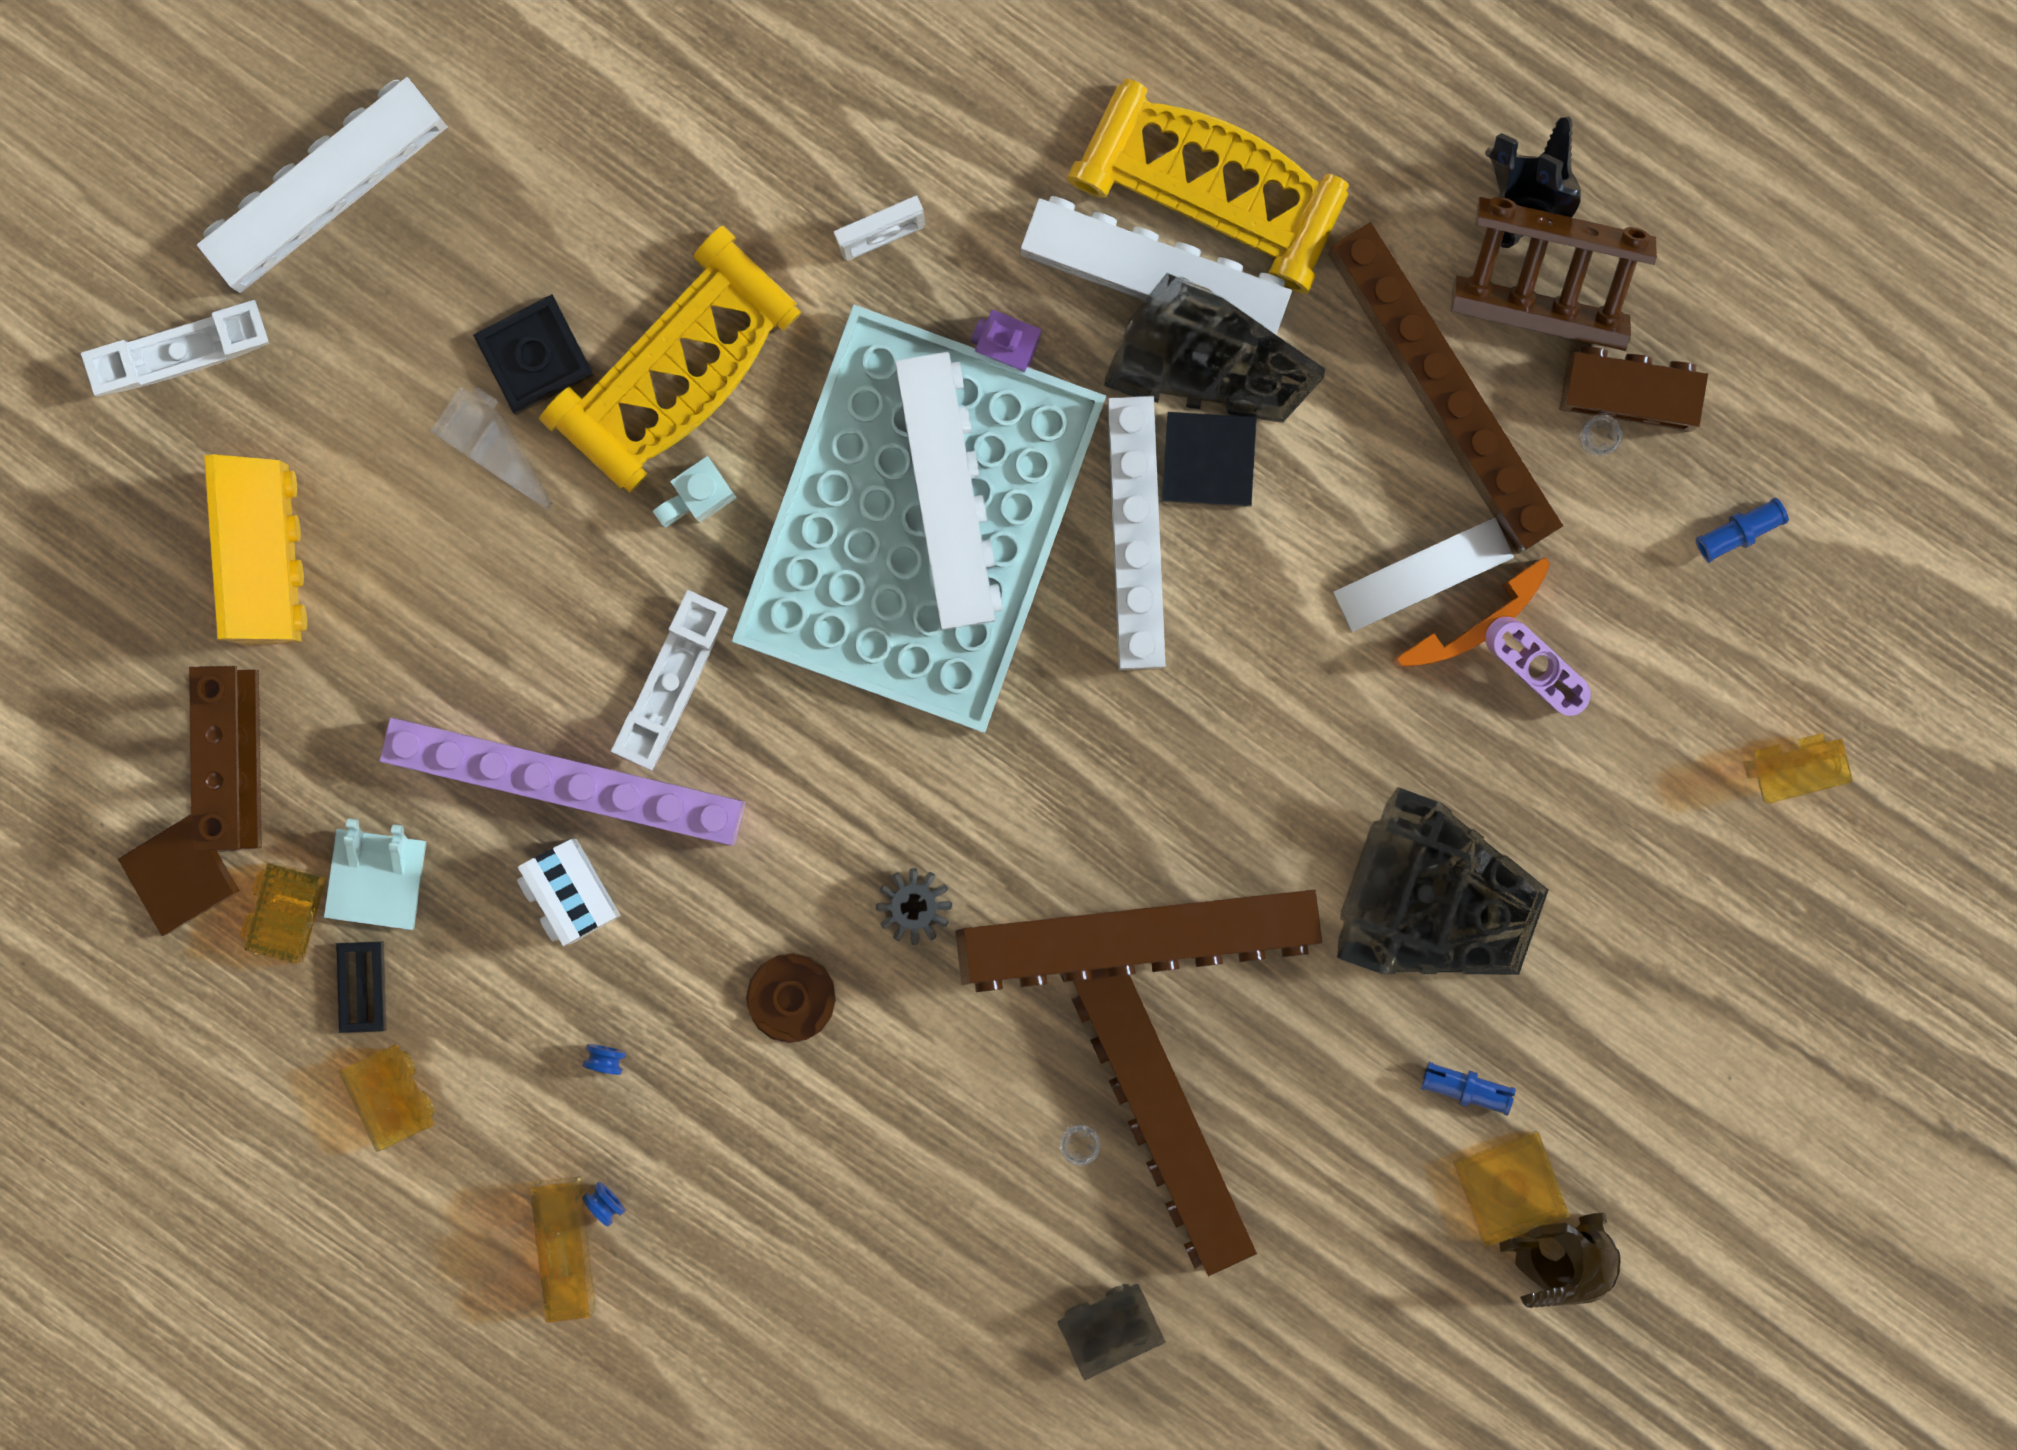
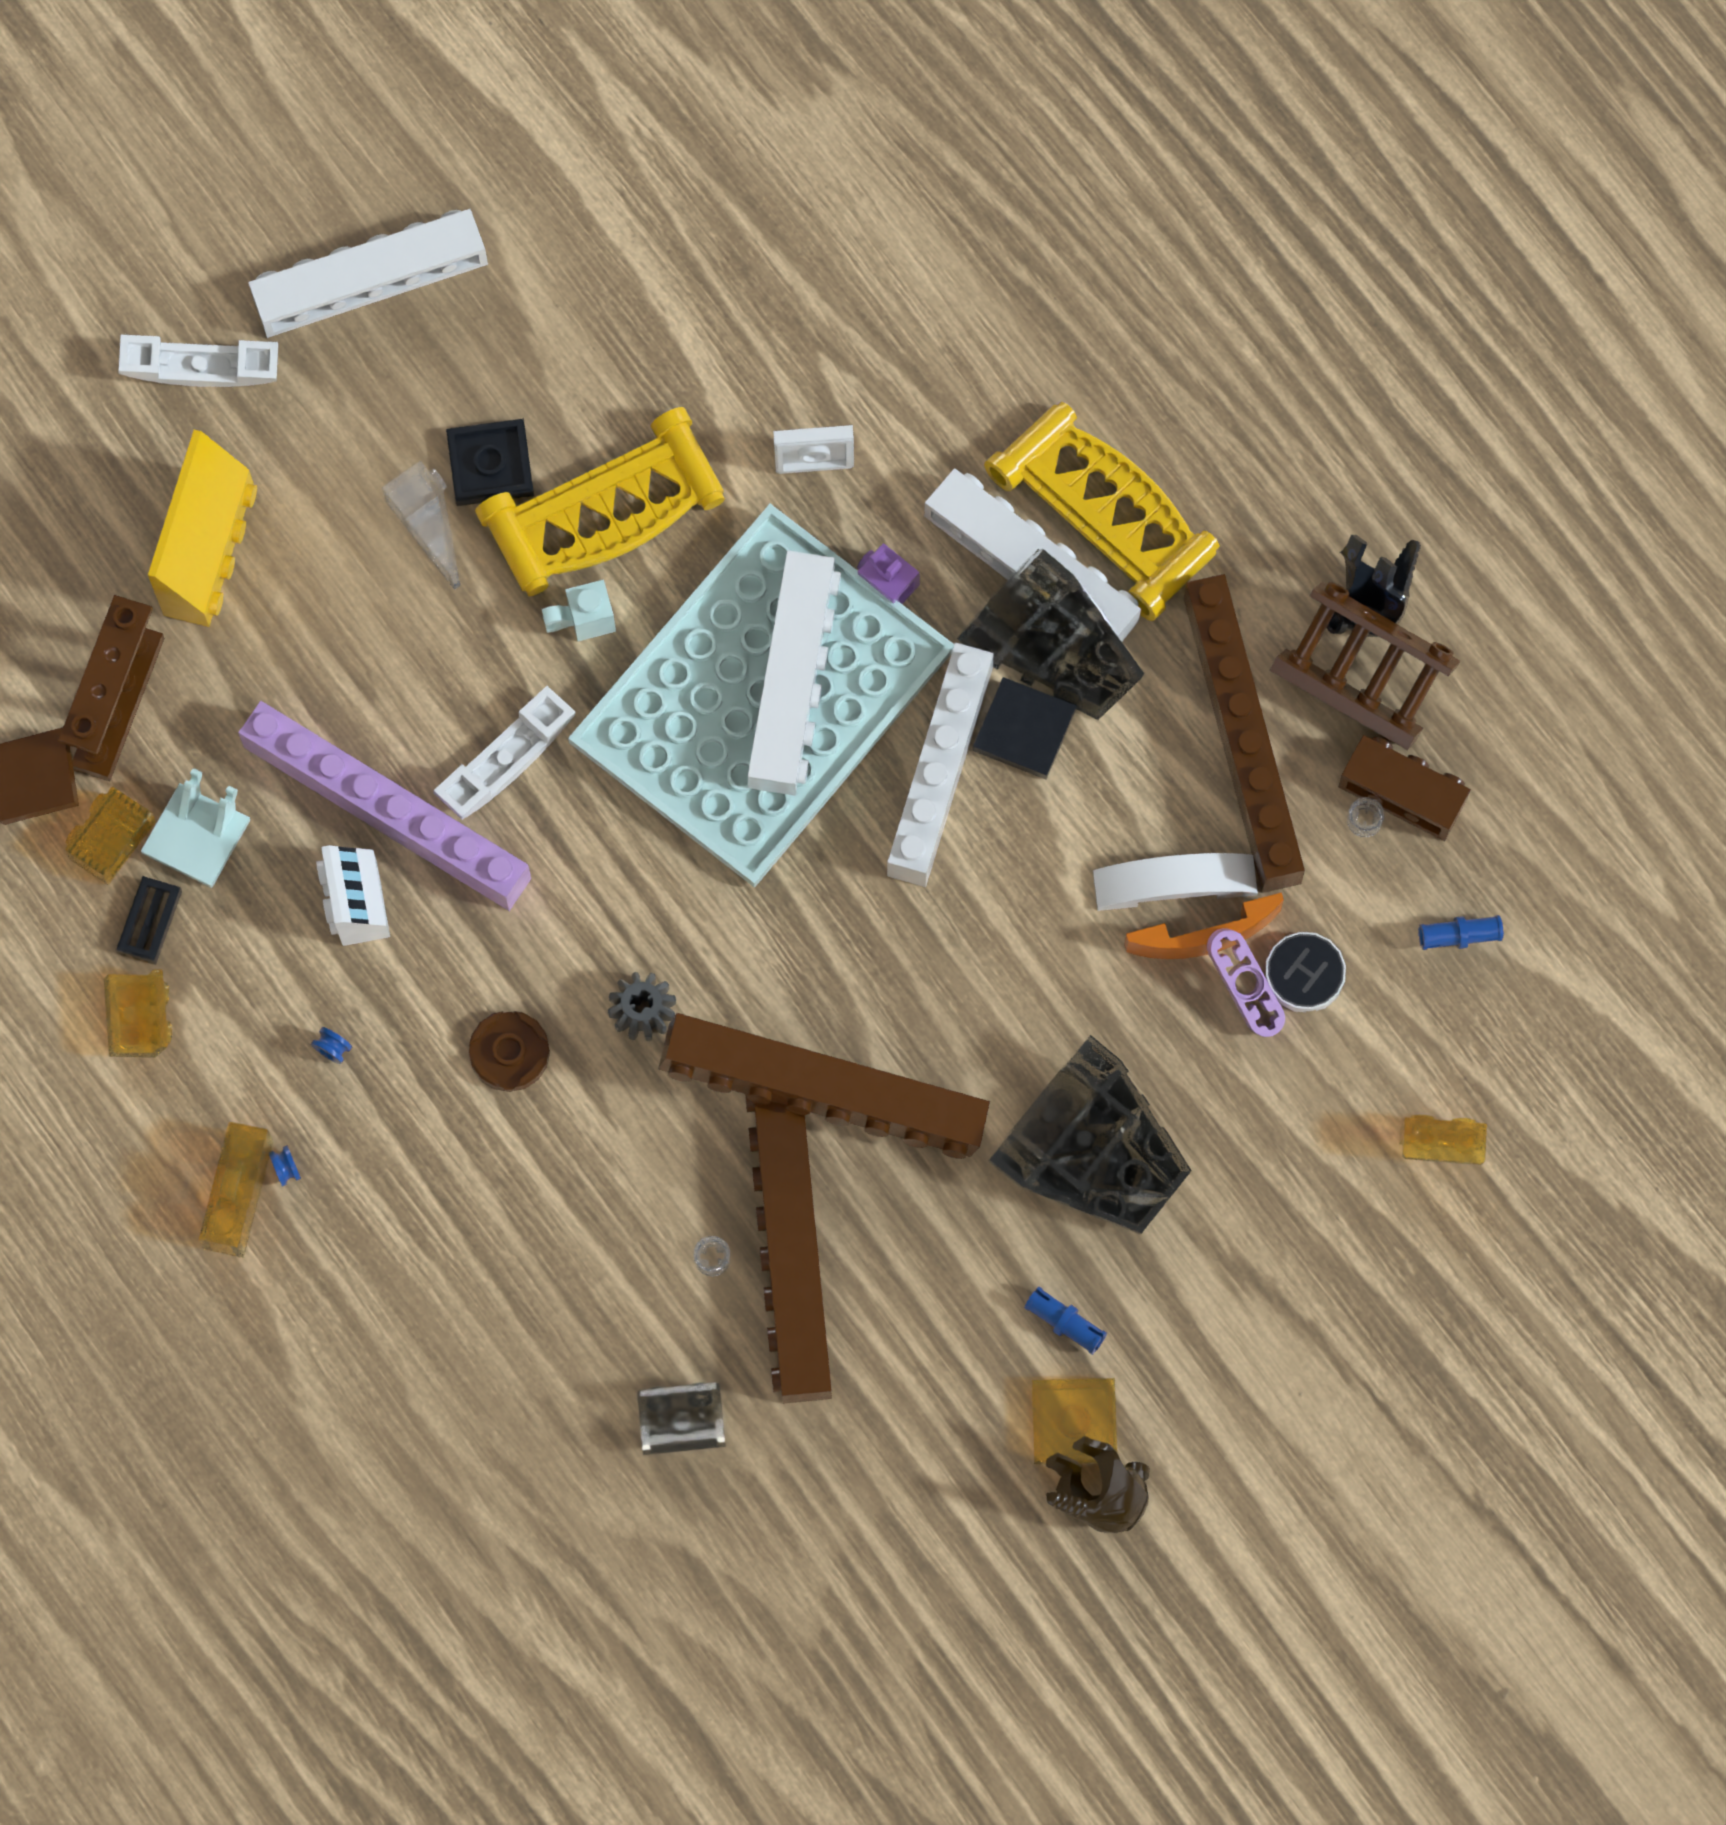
camera: 20 degrees right, 15 degrees down
(1592, 627) = (1305, 971): none -> black tile

